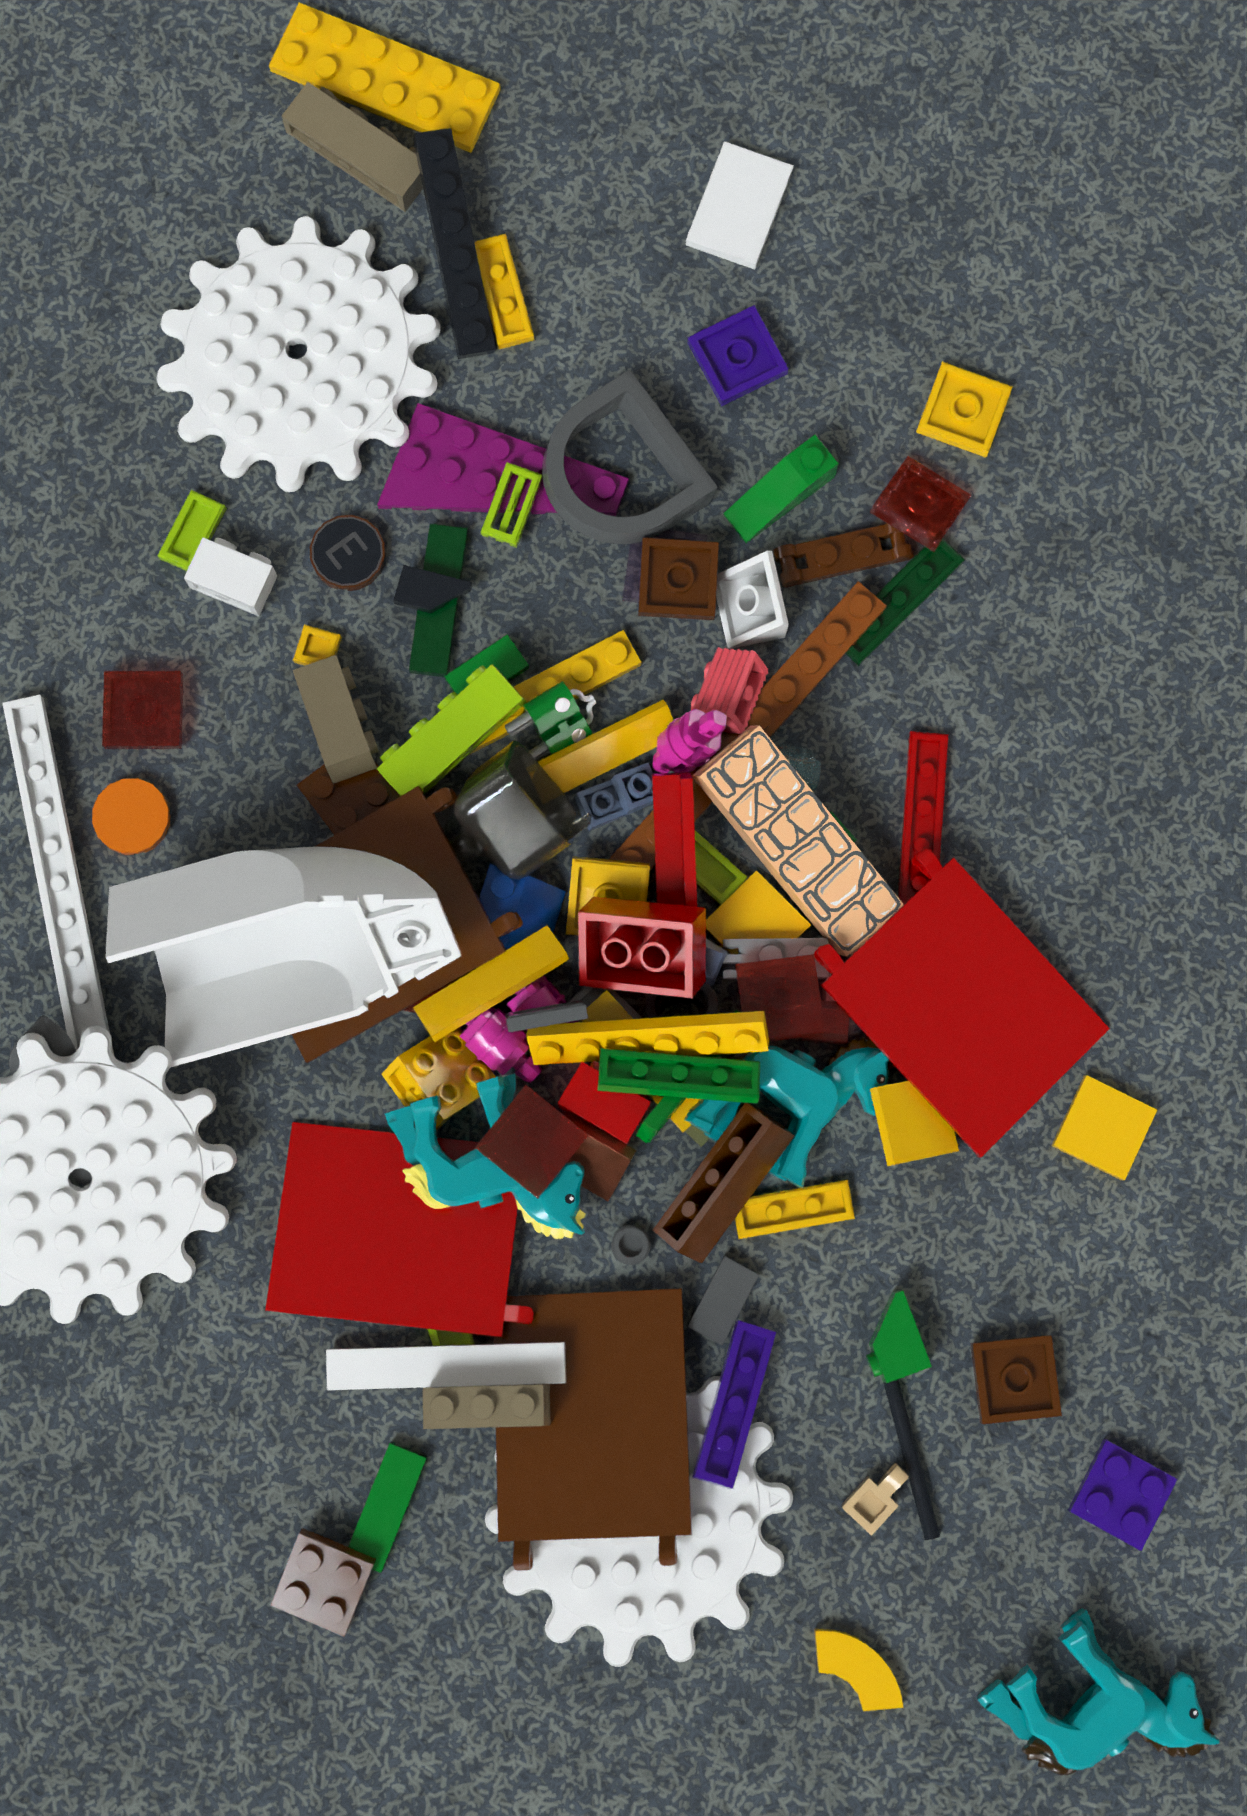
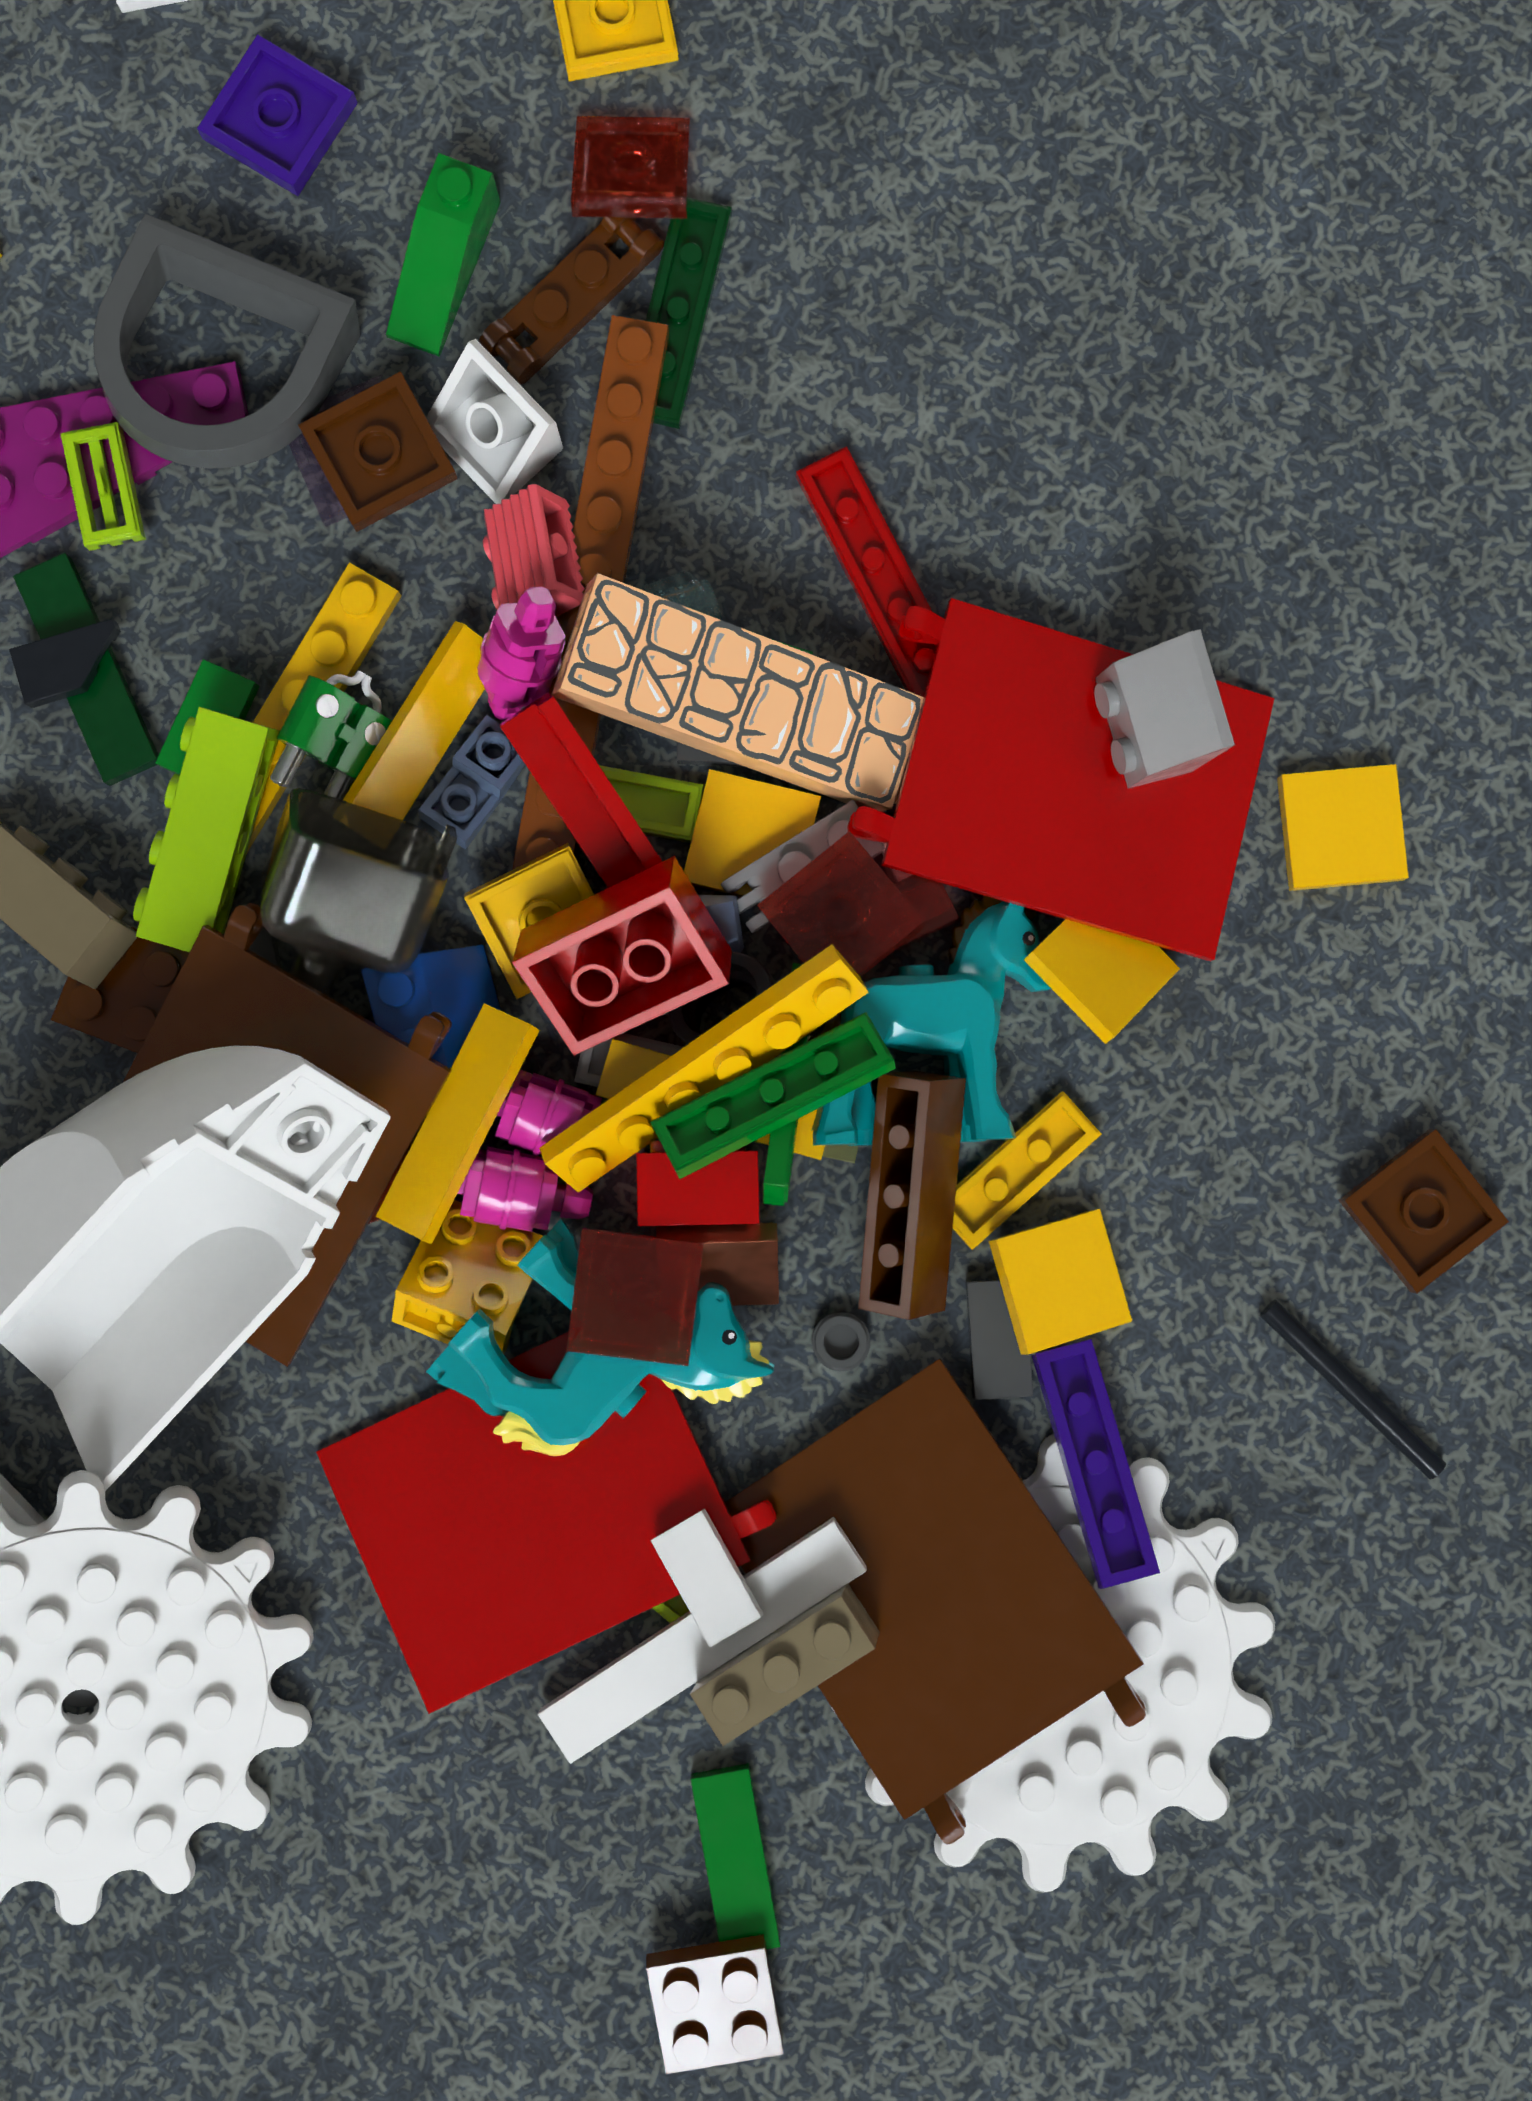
camera: 30 degrees left, 5 degrees up
(472, 1329) = (707, 1578): none -> white tile
(546, 1015) = (553, 1123): dark grey tile -> none
(778, 1288) = (1060, 1281): none -> yellow tile
(860, 1666) = (1445, 1685): yellow tile -> none
(872, 1502) = (1338, 1475): tan plate -> none
(896, 1342) = (1249, 1257): green slope -> none
(1034, 995) = (1163, 710): none -> light grey slope

